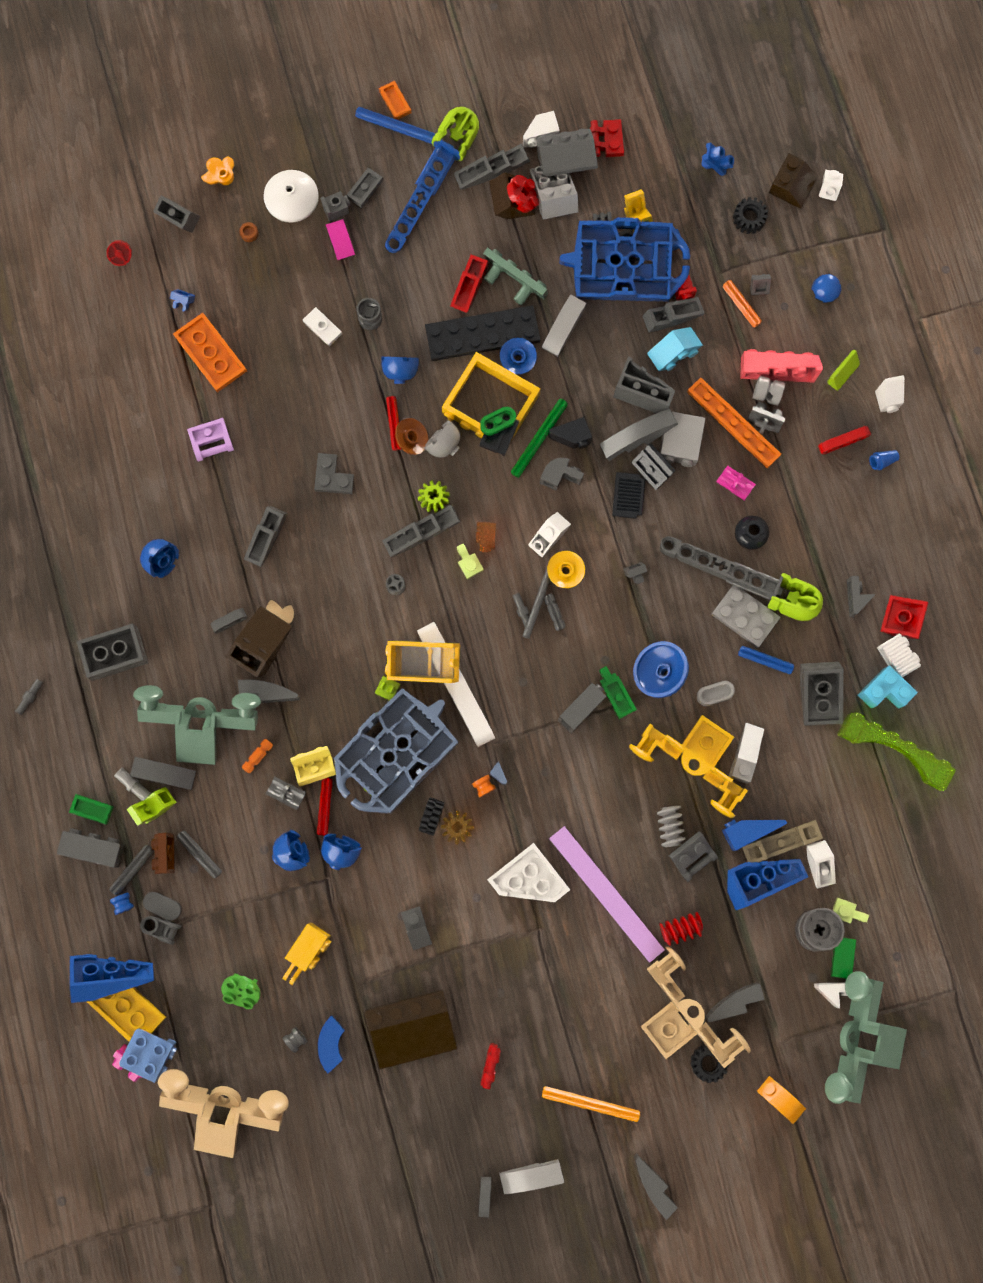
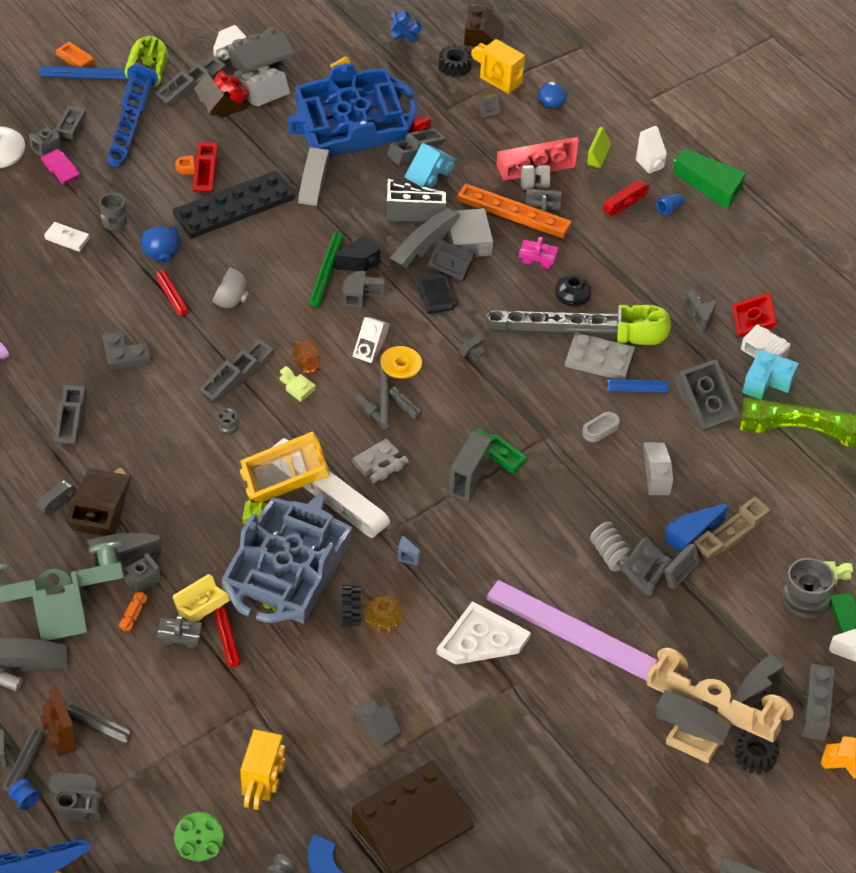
camera: 20 degrees left, 30 degrees down
(152, 806) = (30, 688): lime brick -> none
(280, 726) = (142, 574): none -> dark grey brick
(289, 852) = (203, 685): blue cylinder -> none
(340, 852) = (261, 668): blue cylinder -> none
(415, 431) = (195, 295): dark orange dish -> none
(439, 501) = (237, 337): lime gear -> none
(454, 271) = (185, 165): none -> orange tile
(484, 786) = (396, 567): orange wheel -> none
(489, 1072) = (518, 821): red plate -> none
(496, 419) = (281, 249): green plate -> none
(500, 373) = (267, 228): yellow window -> none
(500, 441) = (285, 264): black plate -> none
(509, 663) = (376, 457): none -> light grey plate
(519, 347) = (277, 209): blue dish -> none
(523, 277) = (254, 151): sand green plate -> none
(591, 1104) = (647, 832): light orange axle -> none
(612, 135) = (298, 37): red plate -> none
(652, 664) = (536, 414): blue dish -> none
(667, 1023) = (692, 717): none -> dark grey slope
(682, 929) = (666, 632): red piece -> none
(706, 745) = (610, 471): yellow piece -> none
(722, 867) = (682, 566): none -> dark grey tile
(742, 303) = (478, 124): orange axle -> none
(758, 880) = (725, 569): blue wedge -> none
(779, 1037) = (817, 702): none -> dark grey brick
(789, 239) = (500, 65): none -> yellow brick
(821, 863) = (781, 536): white slope -> none
(831, 185) = (519, 24): white bracket -> none
(934, 438) = (709, 176): none -> green slope

